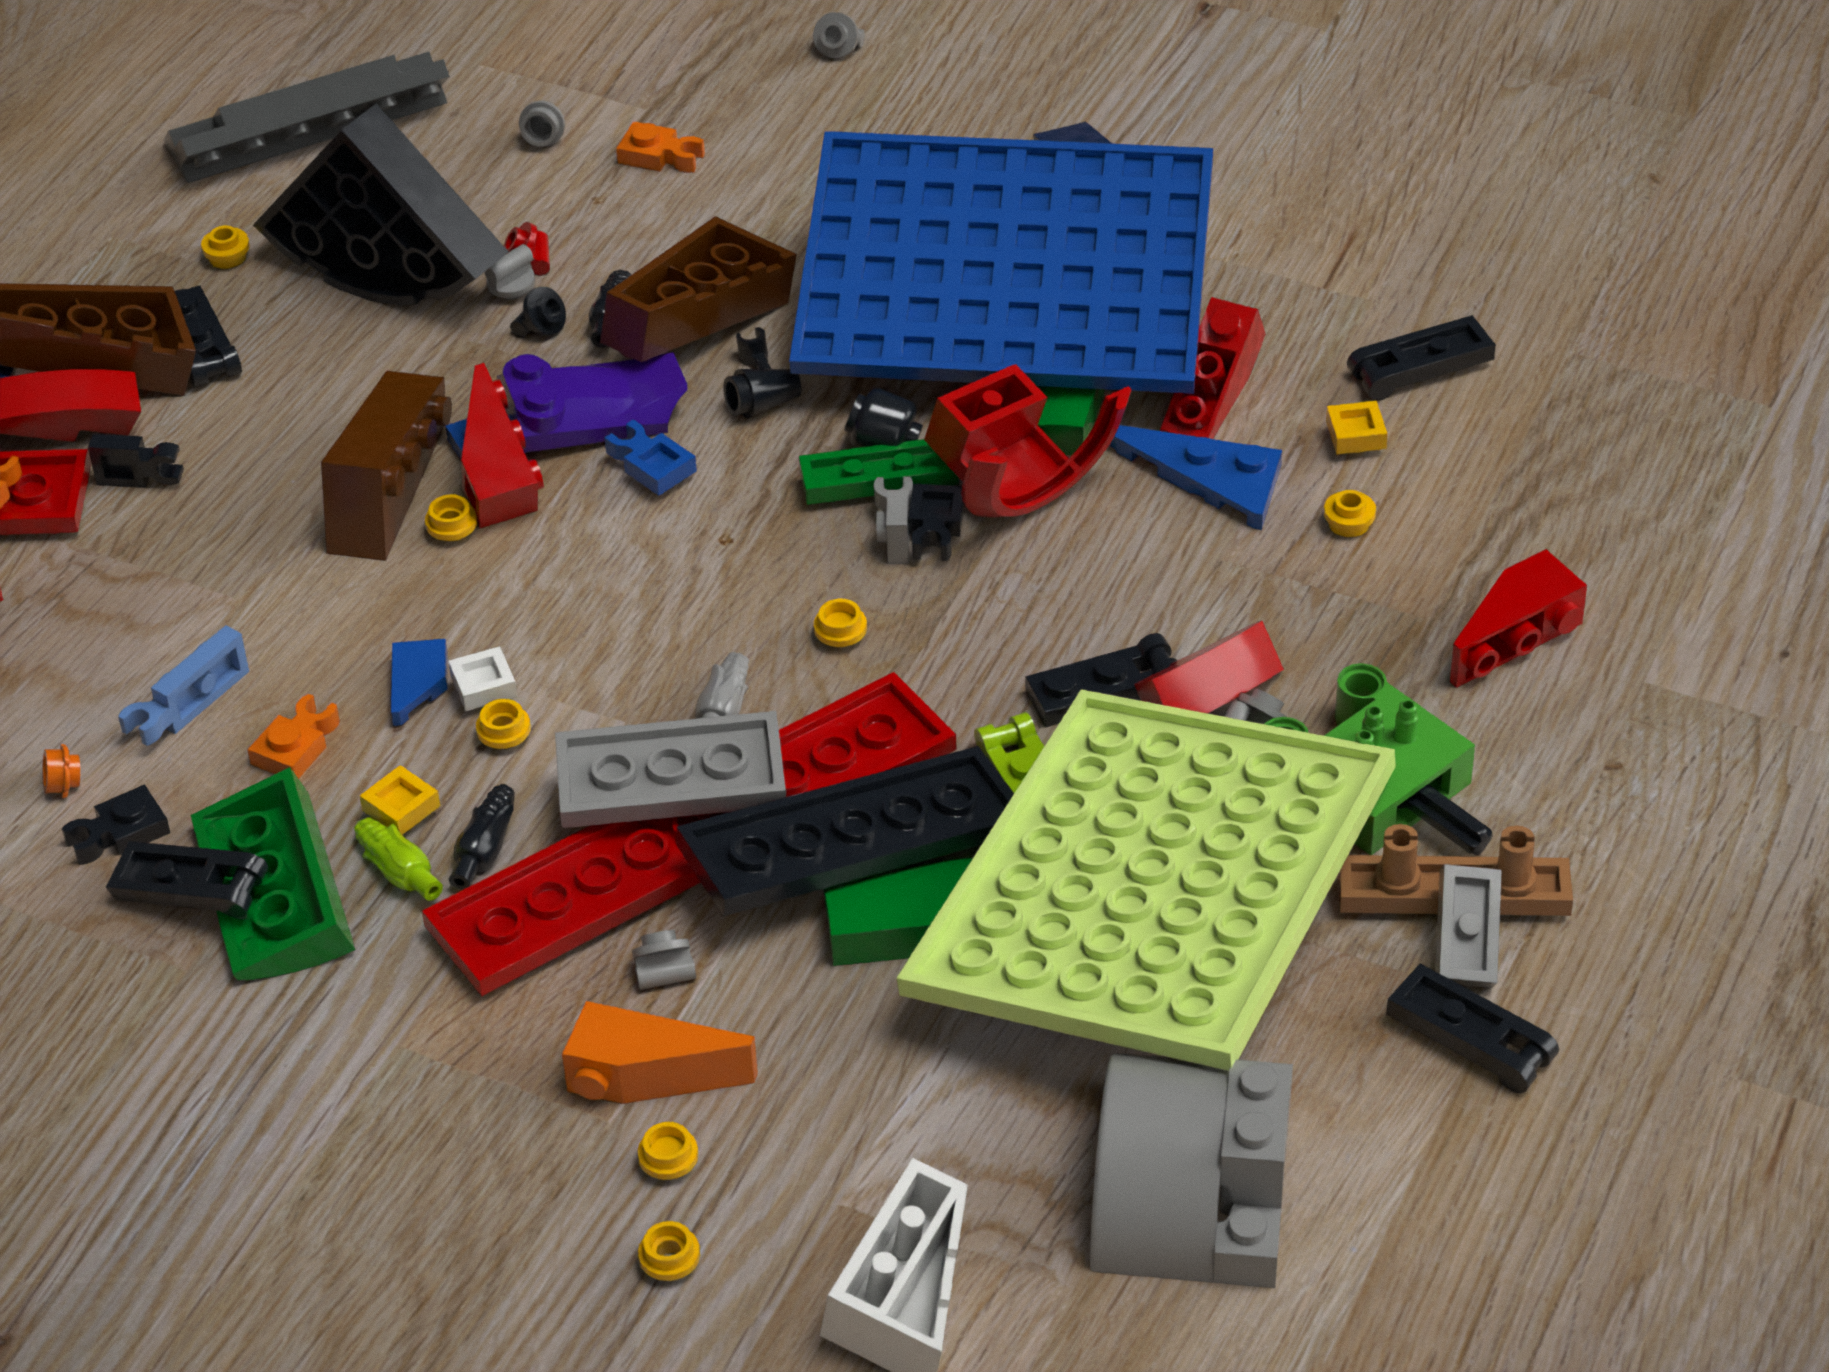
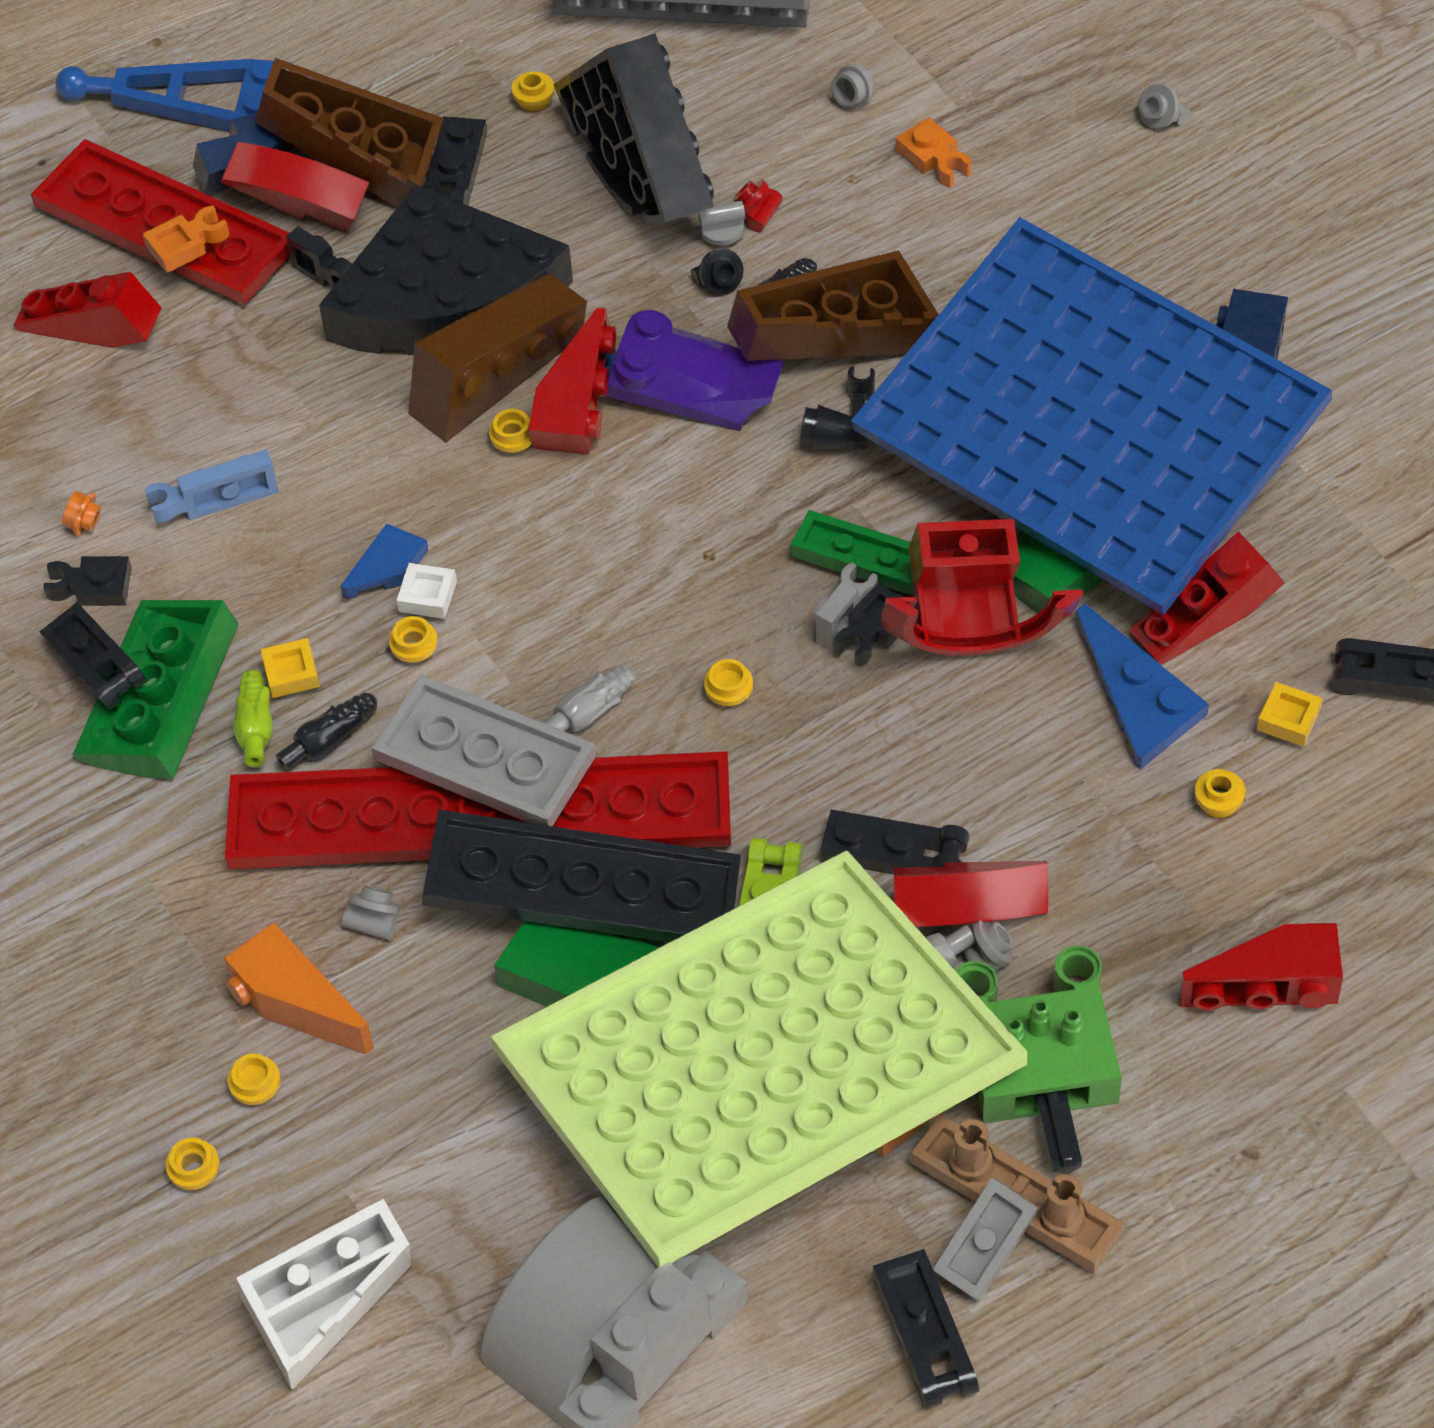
camera: 35 degrees right, 10 degrees up
(267, 420) = (432, 269): none -> black brick
(294, 741) = (260, 574): orange plate -> none
(652, 462) = (700, 454): blue plate -> none
(882, 420) = (897, 508): black head -> none

